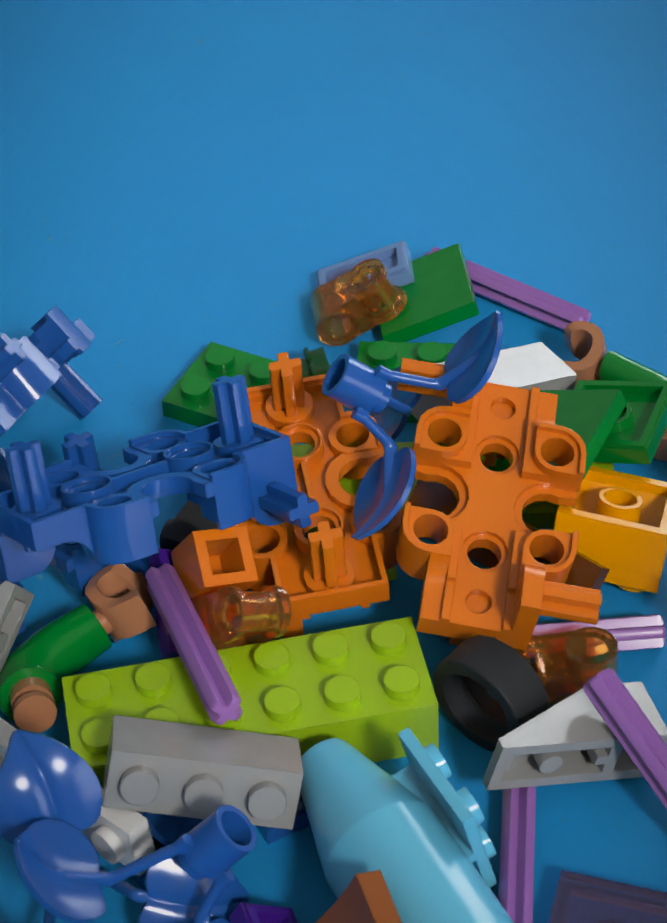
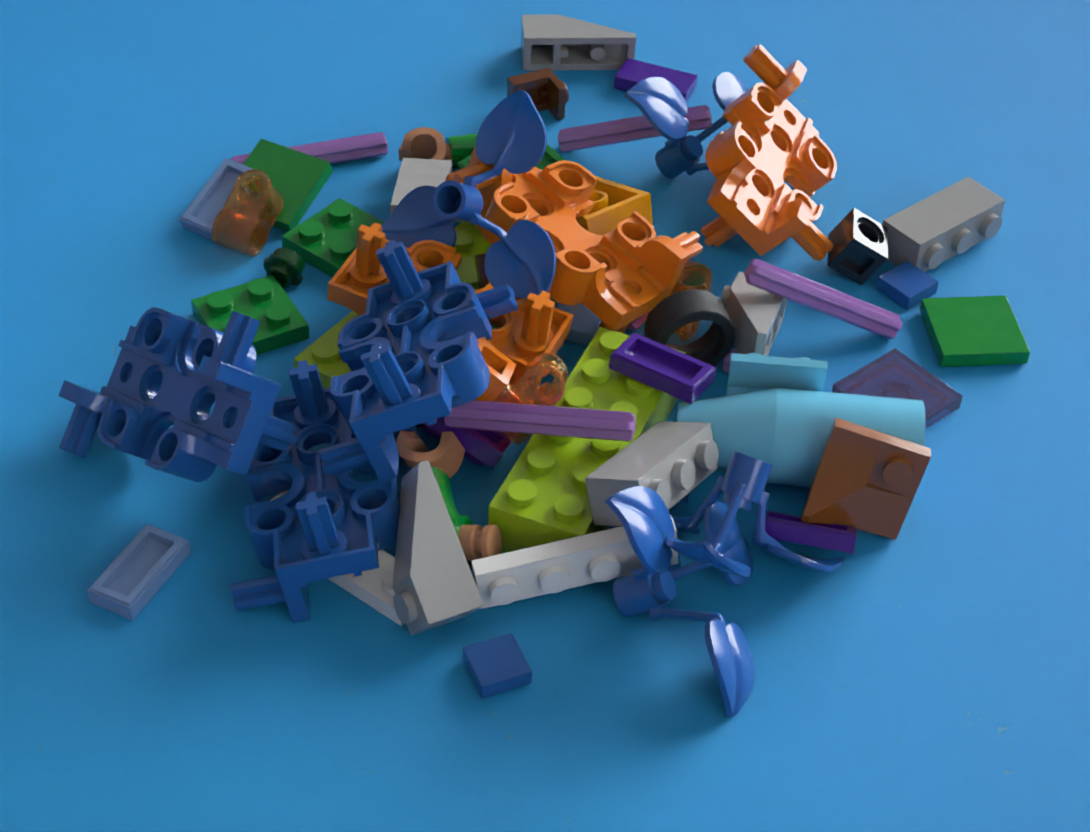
camera: 60 degrees left, 0 degrees up
(366, 693) = (662, 368): none -> dark purple tile

